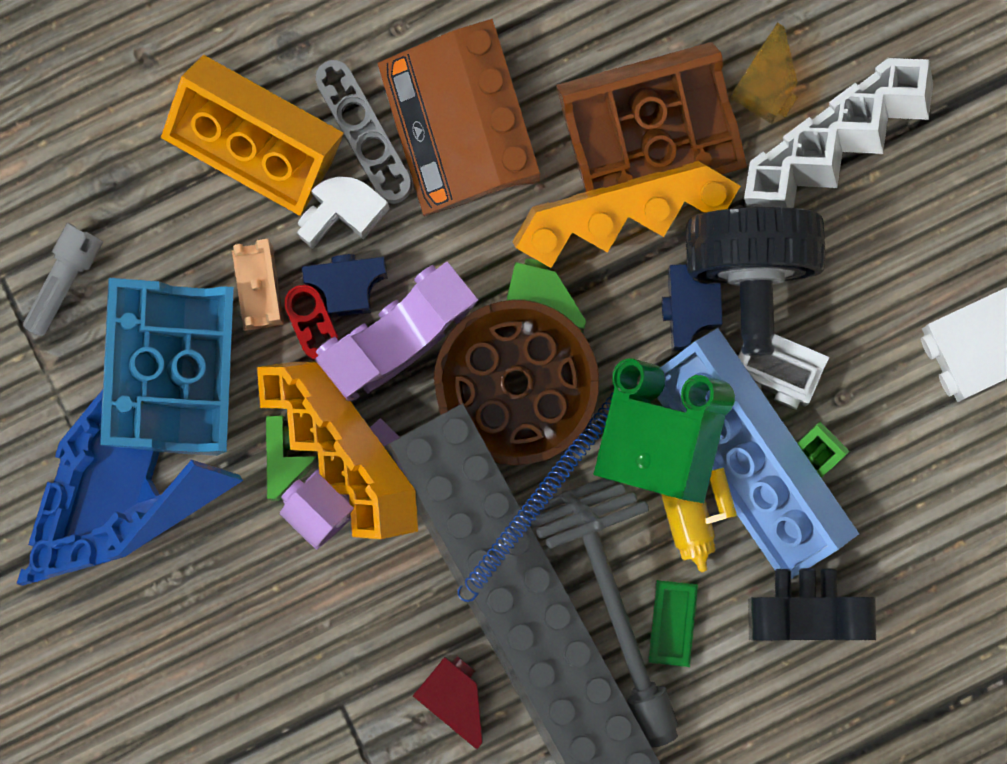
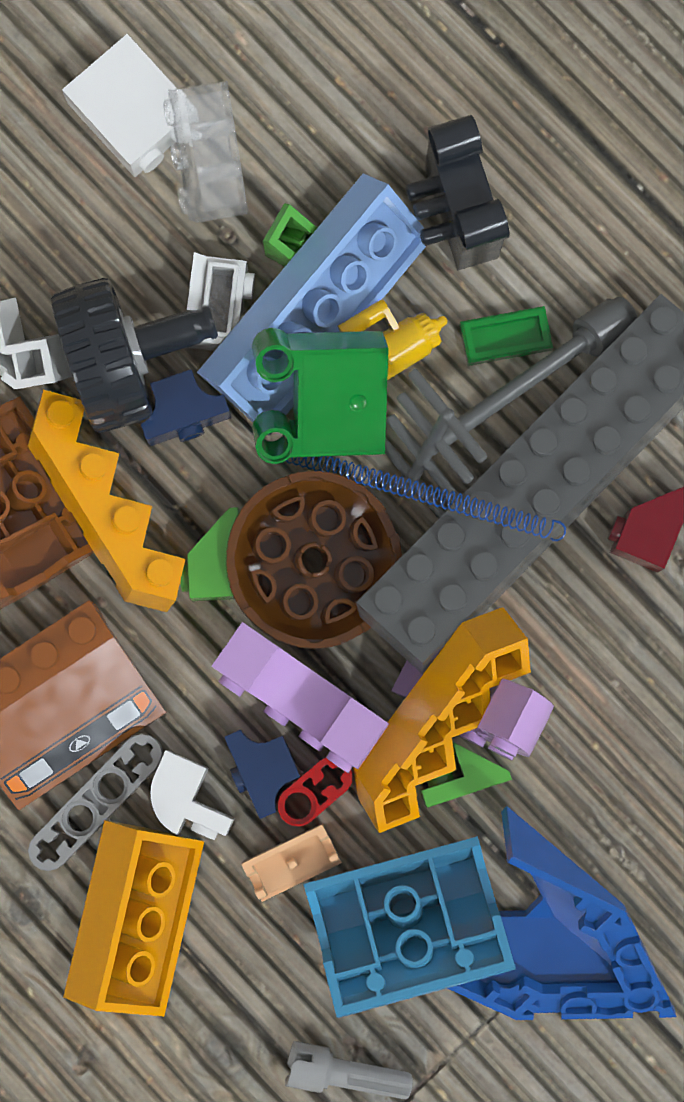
camera: 115 degrees left, 0 degrees up
(920, 395) = (206, 151): none -> clear brick

